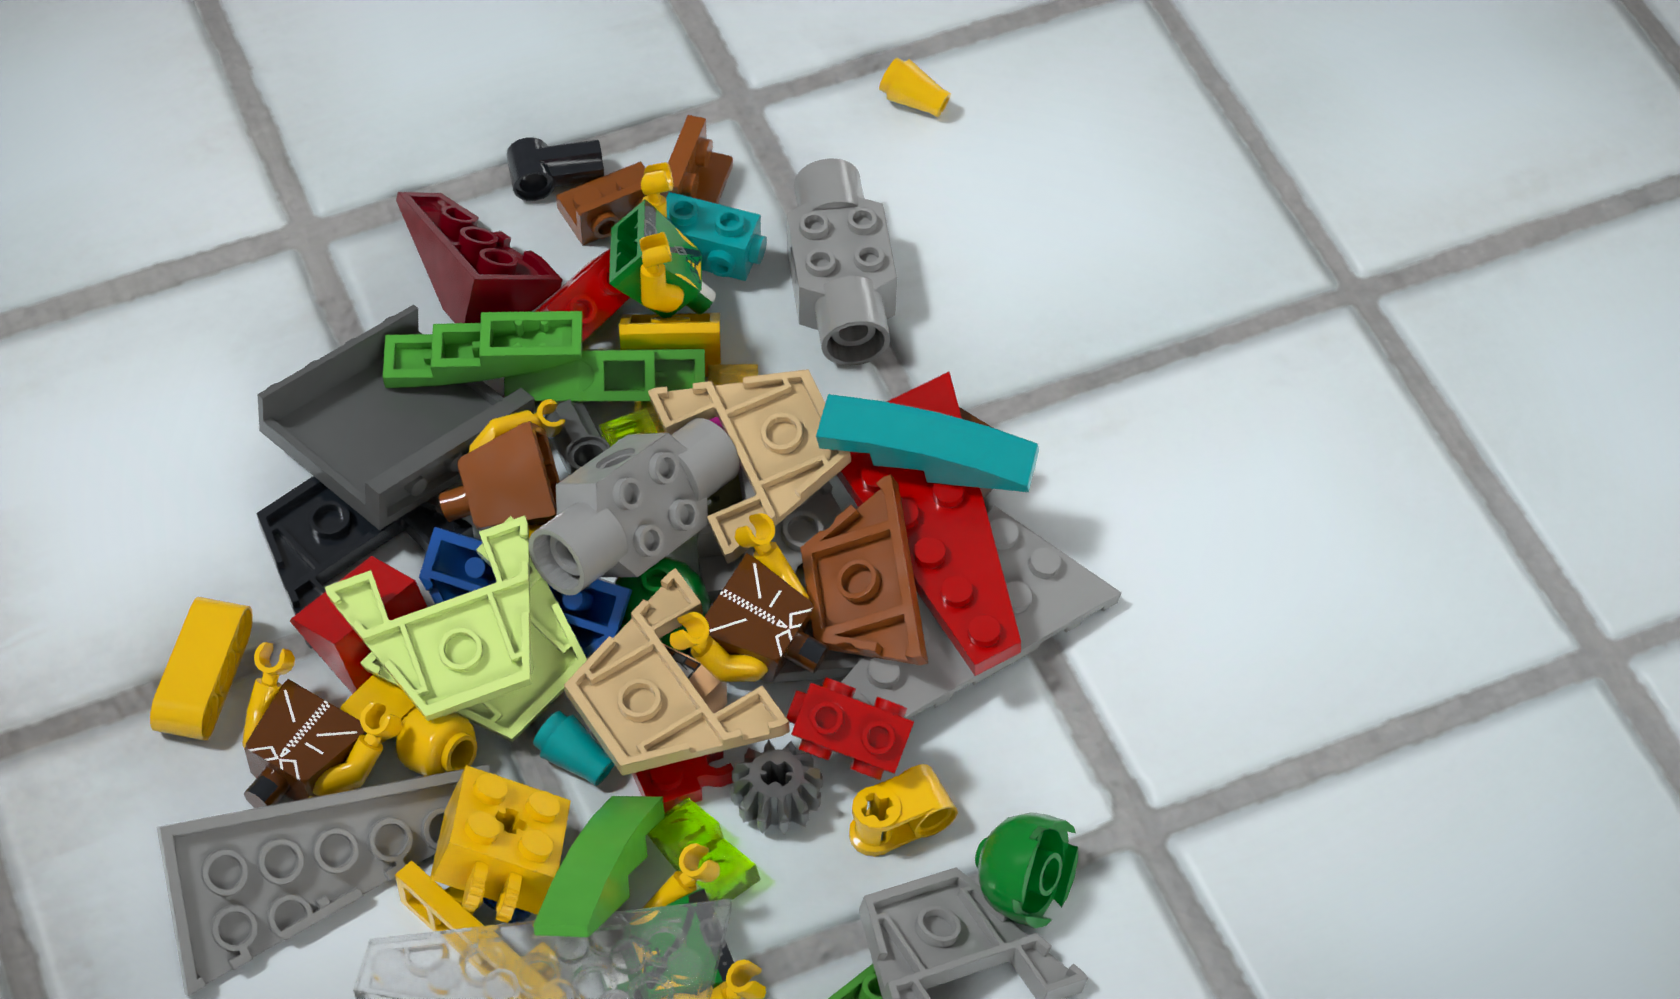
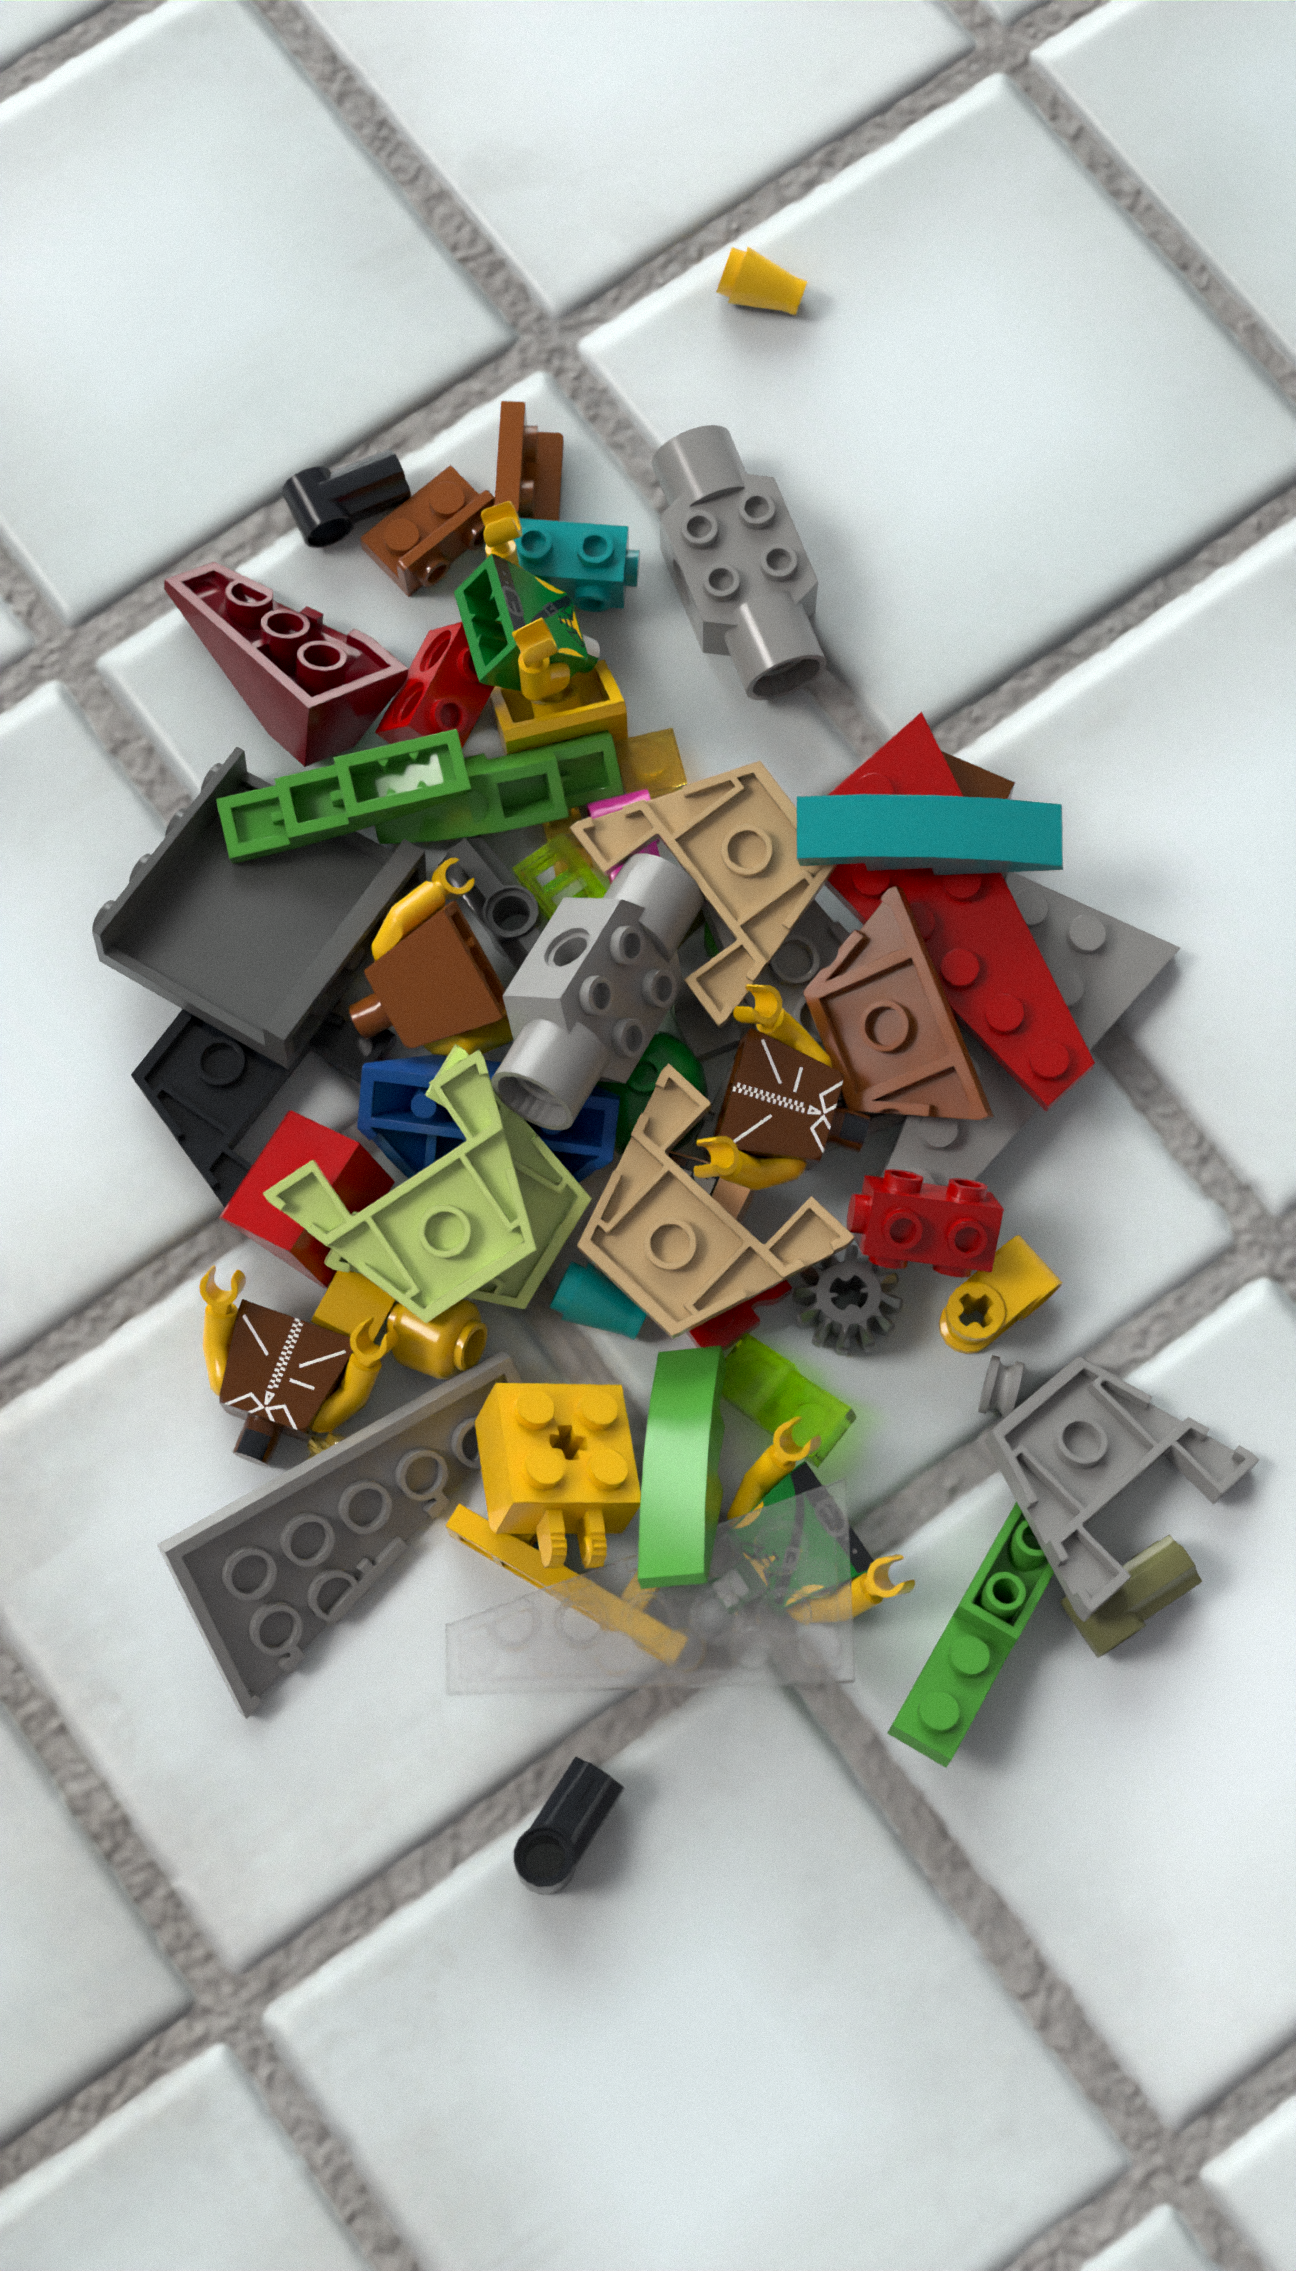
camera: 10 degrees left, 20 degrees up
(201, 668) = (129, 1296): yellow beam -> none
(884, 873) = (1000, 1387): none -> light grey bush
(1027, 866) = (1159, 1341): green cylinder -> none

